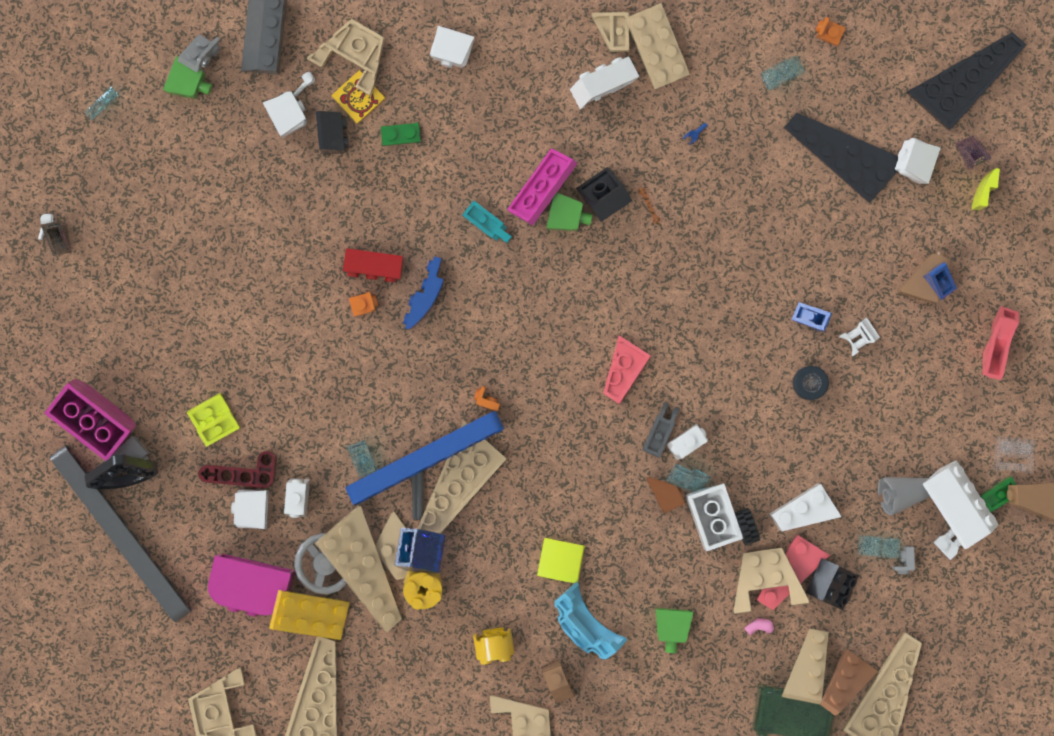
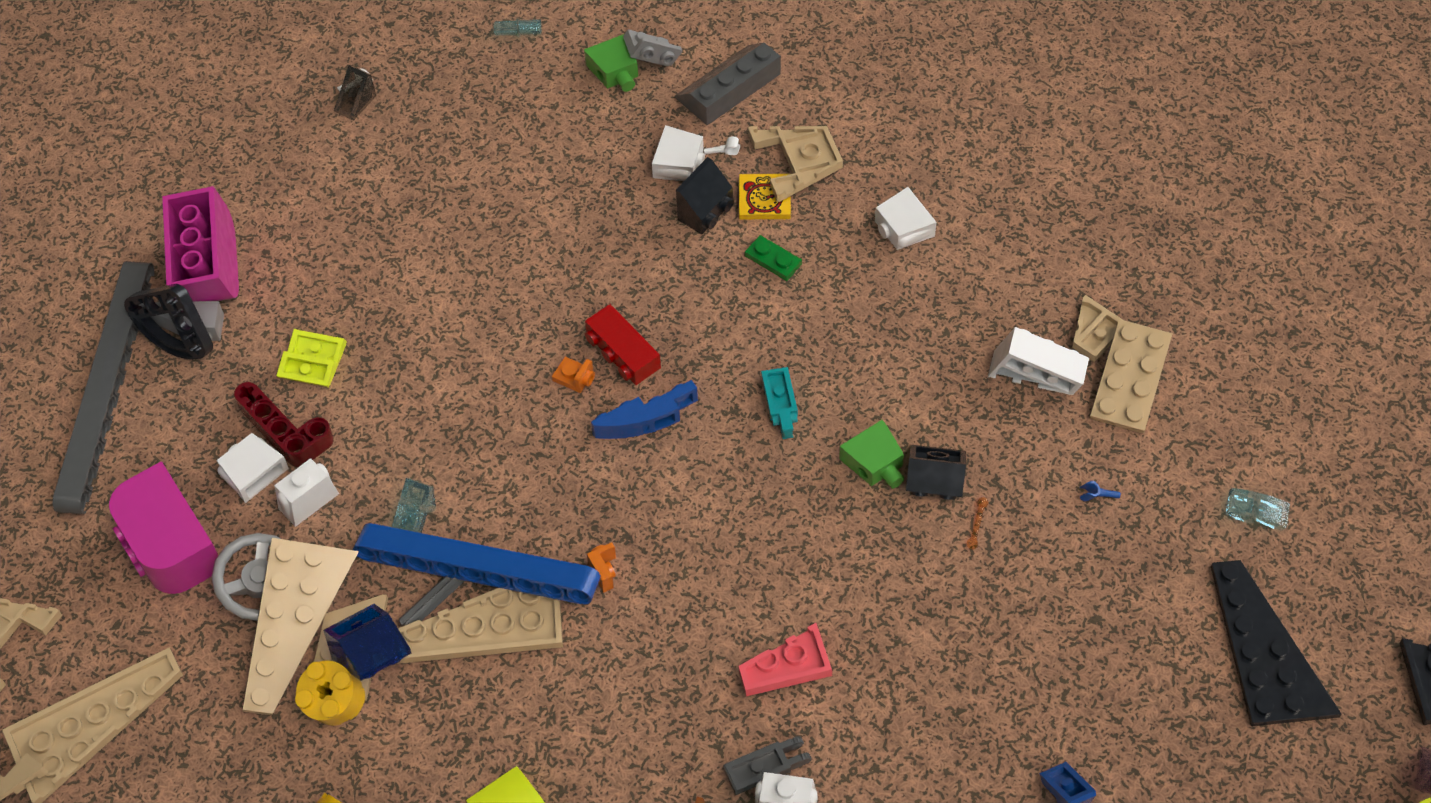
camera: 40 degrees right, 30 degrees down
(309, 615) = (184, 611): yellow plate -> none
(542, 186) = (873, 406): dark pink plate -> none
(829, 31) = (1352, 509): orange bracket -> none
(917, 160) = (1354, 719): white torso -> none

